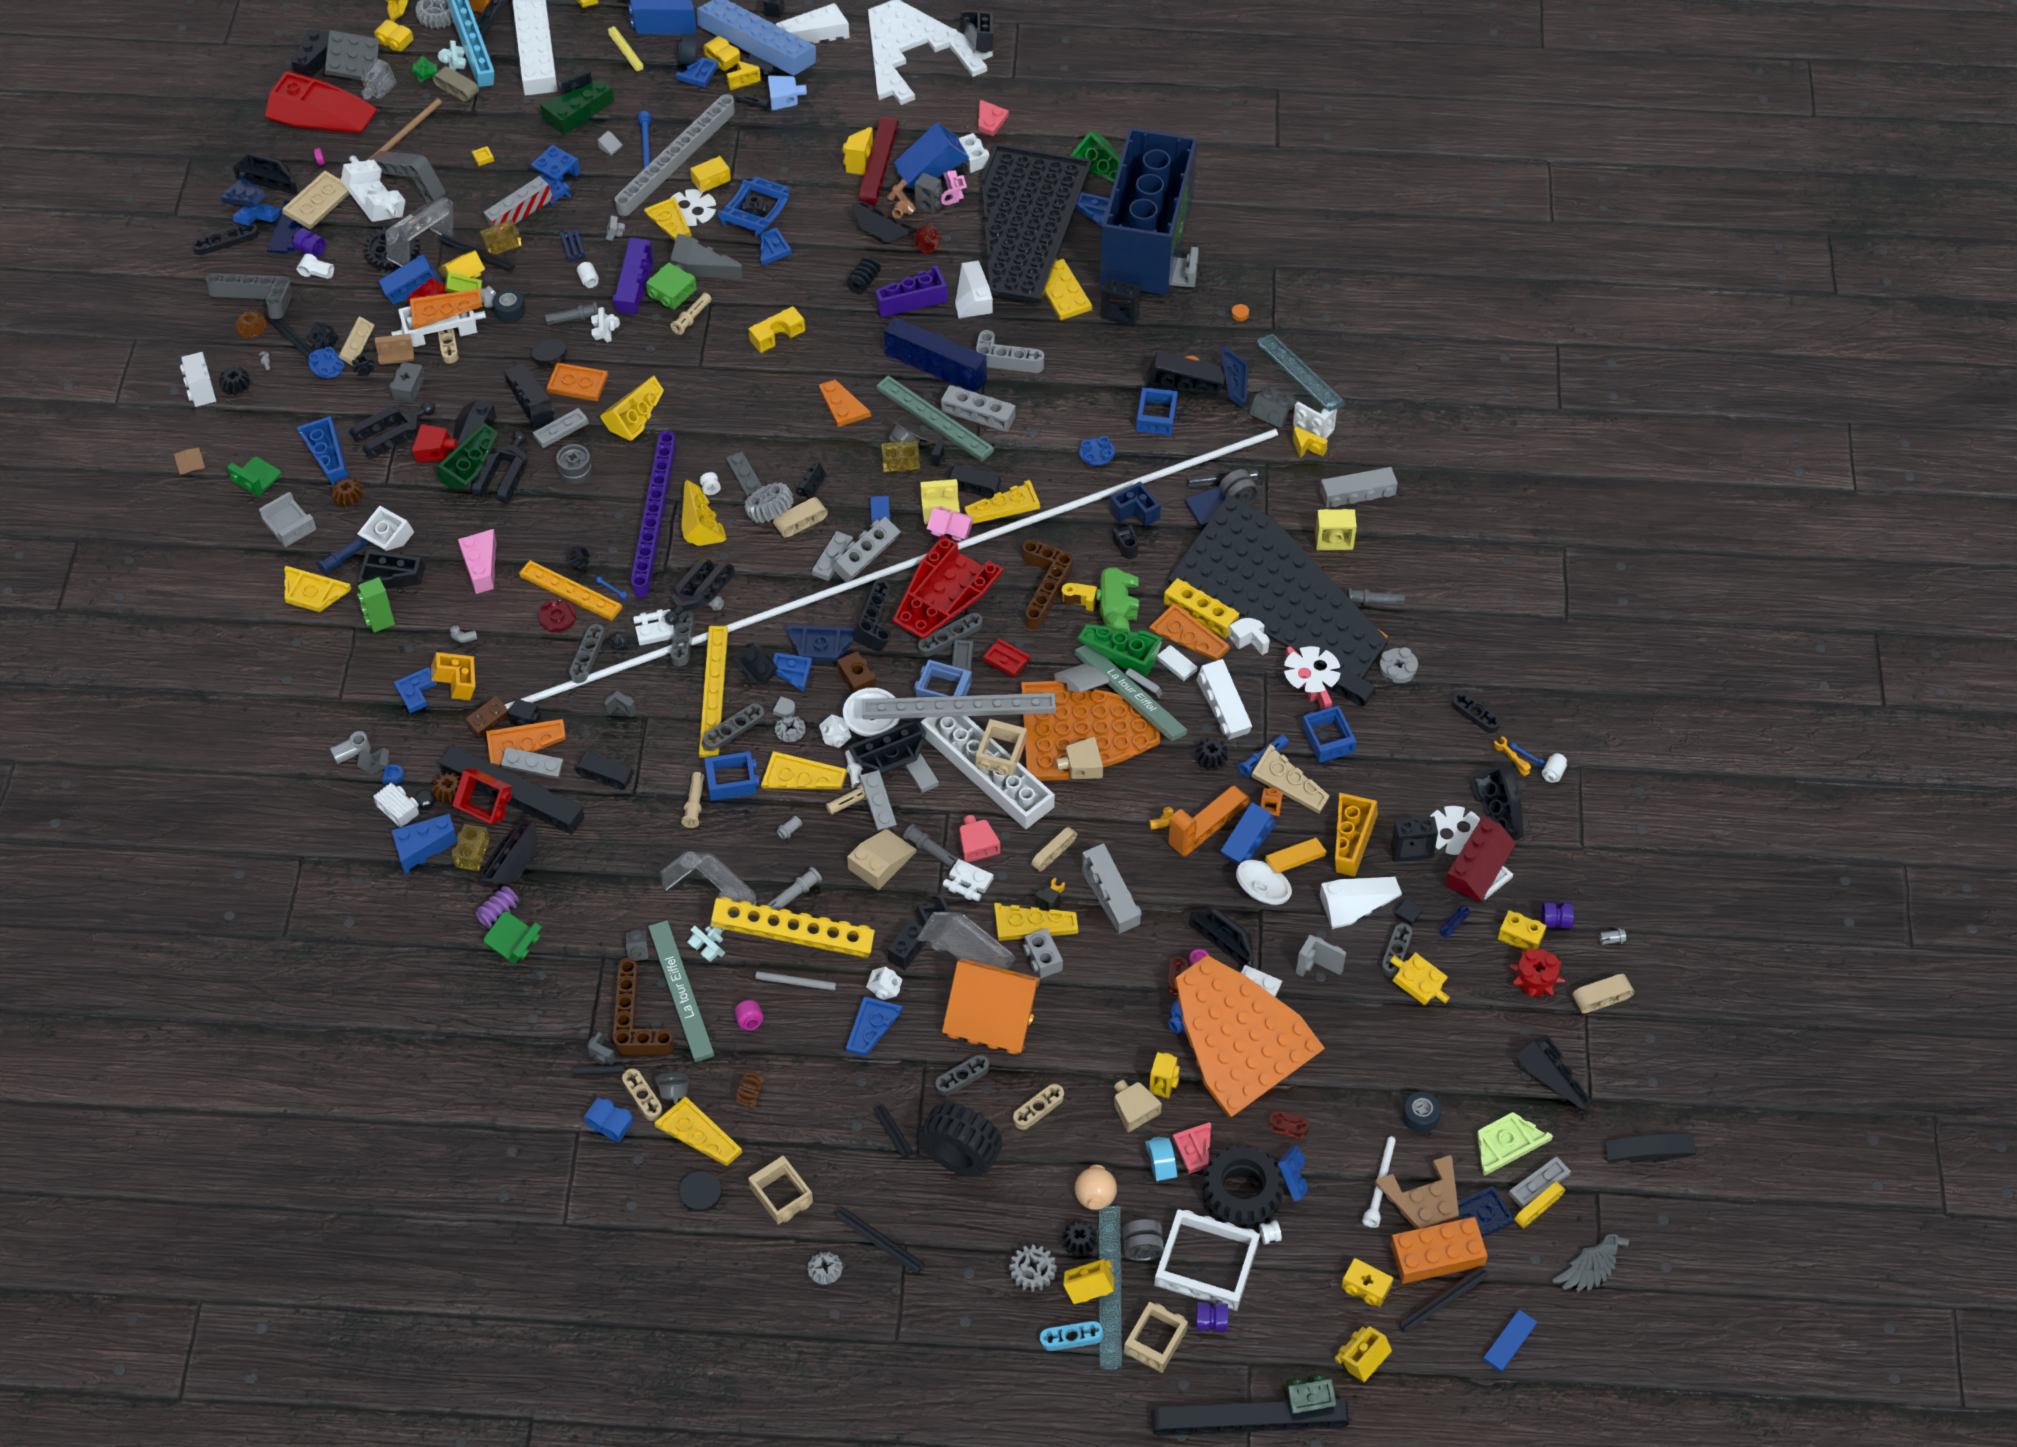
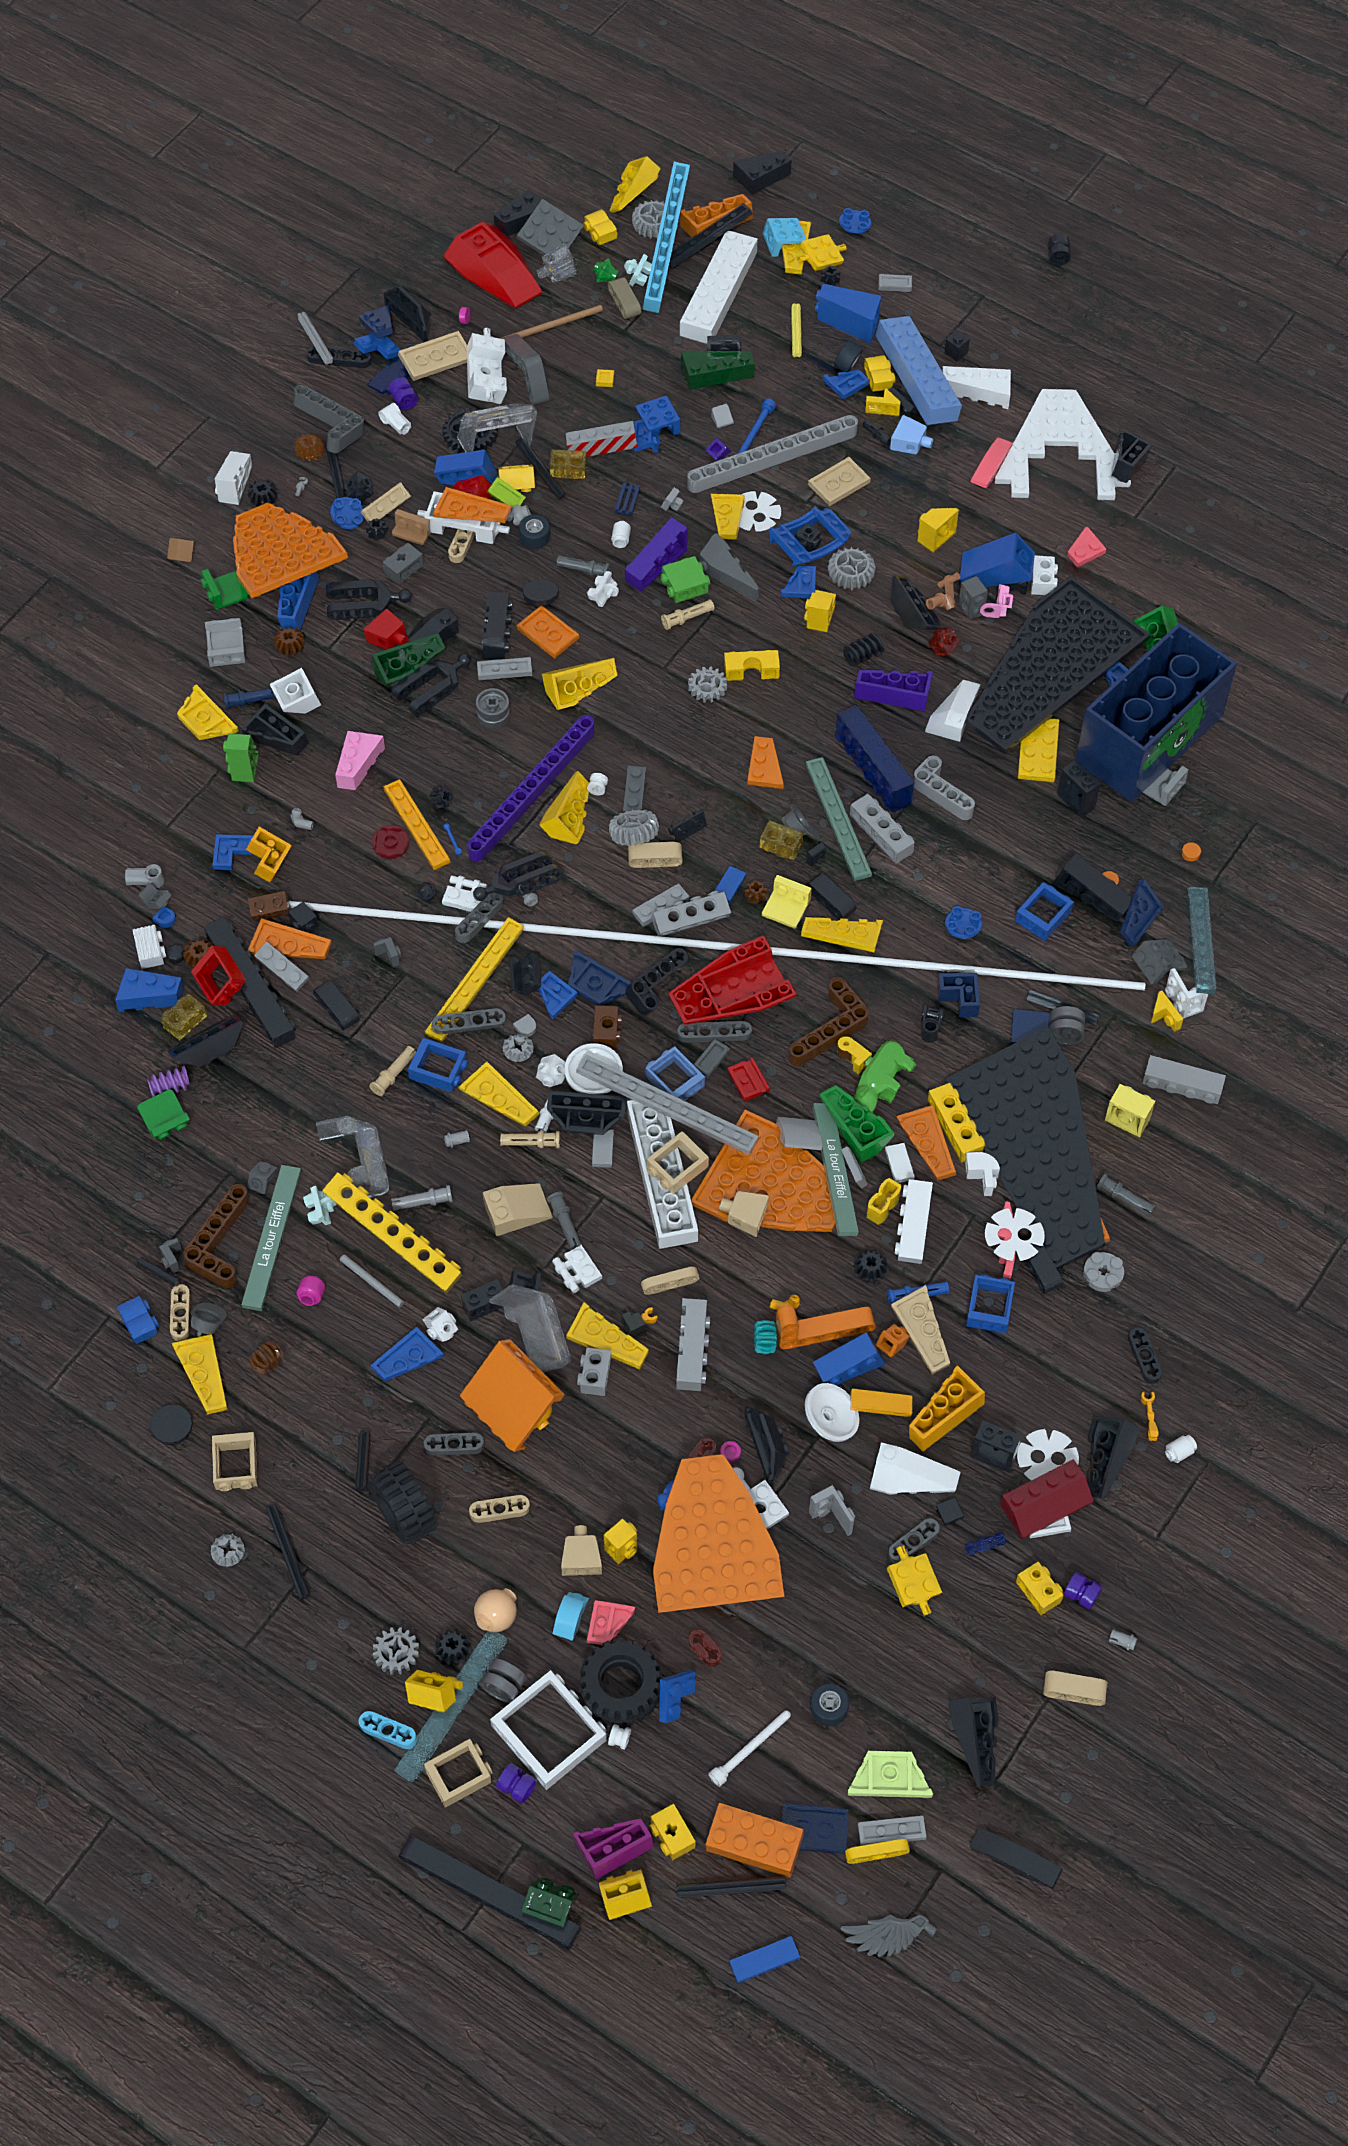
camera: 30 degrees right, 5 degrees up
(193, 231) = (315, 338): none -> light grey axle
(287, 418) = (280, 548): none -> orange wing
(583, 652) = (394, 892): dark grey beam -> none
(624, 171) = (718, 449): none -> dark purple slope
(710, 174) = (790, 487): yellow brick -> none
(748, 152) = (839, 481): none -> tan plate
(749, 361) = (707, 684): none -> light grey gear
(806, 260) = (820, 610): none -> yellow brick
(807, 211) = (851, 568): none -> light grey gear
(867, 83) = (991, 462): none -> coral slope
(878, 160) = (952, 543): dark red beam -> none
(878, 800) = (545, 1154): light grey plate -> none
(908, 506) = (756, 892): none -> reddish brown gear
(950, 522) = (779, 924): bright pink brick -> none
(978, 840) = (608, 1236): coral torso -> none
(1166, 852) = (765, 1337): none -> teal gear
(1188, 697) = (883, 1201): none -> yellow brick
(1327, 1321) = (613, 1846): none -> magenta wedge
(1428, 1204) = (778, 1793): medium nougat wing -> none
(1513, 746) = (1158, 1407): blue hinge -> none
(1537, 972) = (1028, 1645): red brick -> none

